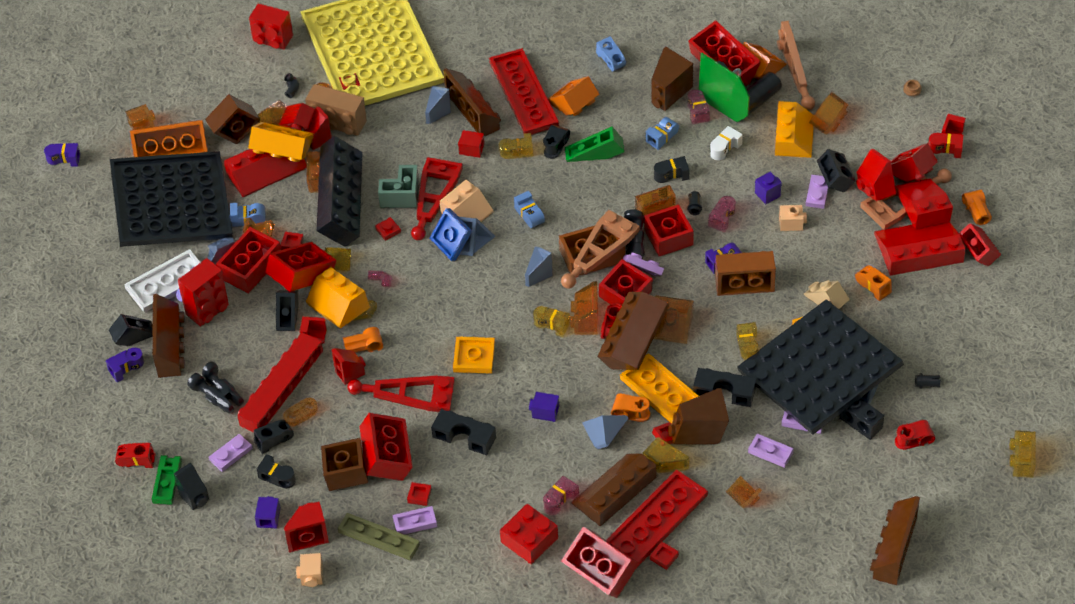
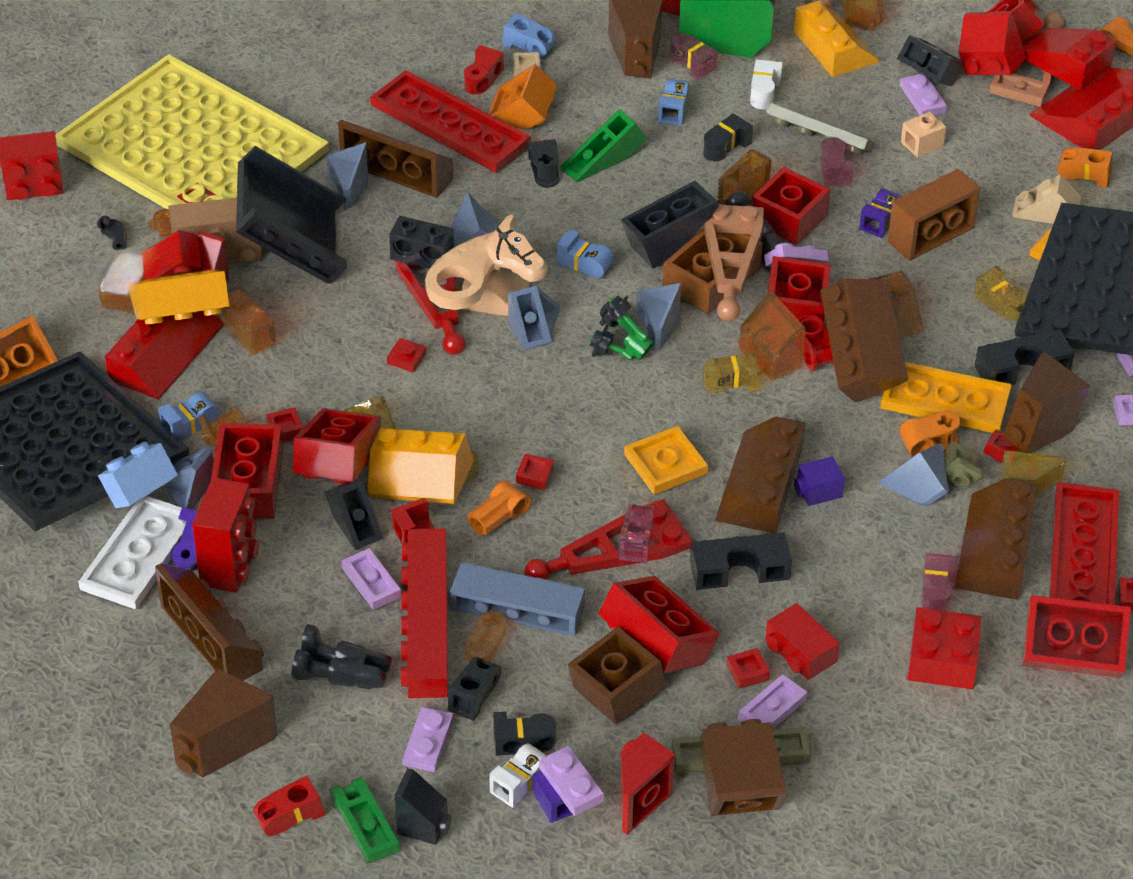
camera: 35 degrees left, 5 degrees down
(125, 362) = (164, 688): dark purple leg -> none
(129, 395) = (222, 724): none -> reddish brown slope
(130, 330) = (139, 640): black slope -> none
(189, 237) = (137, 475): none -> light blue brick
(232, 119) = (76, 297): reddish brown brick -> none
(251, 493) = (516, 775): none -> white leg
(268, 350) = (371, 579): none -> lavender plate
(272, 509) = (571, 780): none -> lavender plate
(310, 569) = (686, 839): light nougat brick -> none
(331, 397) = (518, 598): none -> sand blue brick
(339, 191) = (310, 329): black brick -> none
(348, 364) = (507, 546): red slope -> none
(362, 545) = (741, 768): none -> reddish brown slope
(376, 117) = (288, 214): none -> black panel
(380, 275) = (448, 416): clear pink arm -> none
(399, 329) = (534, 471): none -> red plate
(400, 191) = (391, 295): sand green brick -> none
(418, 389) = (636, 533): none -> clear pink leg
(438, 165) = (419, 241): none -> black brick
(450, 234) = (509, 322): blue tile -> none
(452, 188) = (477, 259): none -> light nougat animal
(457, 493) = (801, 641): none -> red brick
(471, 143) = (437, 205): red panel -> none
(483, 168) = (472, 221): none -> sand blue slope
(514, 276) = (615, 313): none -> plant
(516, 147) = (501, 188): clear yellow leg -> none
(518, 389) = (762, 475): none -> reddish brown slope
(568, 66) = (484, 71): none -> red leg
(582, 211) = (669, 223): none -> black slope
(599, 72) = (525, 60): none -> tan tile
(631, 433) = (961, 465): none -> olive bracket
(694, 206) = (787, 162): black pin -> none
(730, 184) = (808, 126): none -> plate
(768, 187) = (865, 111): dark purple brick -> none

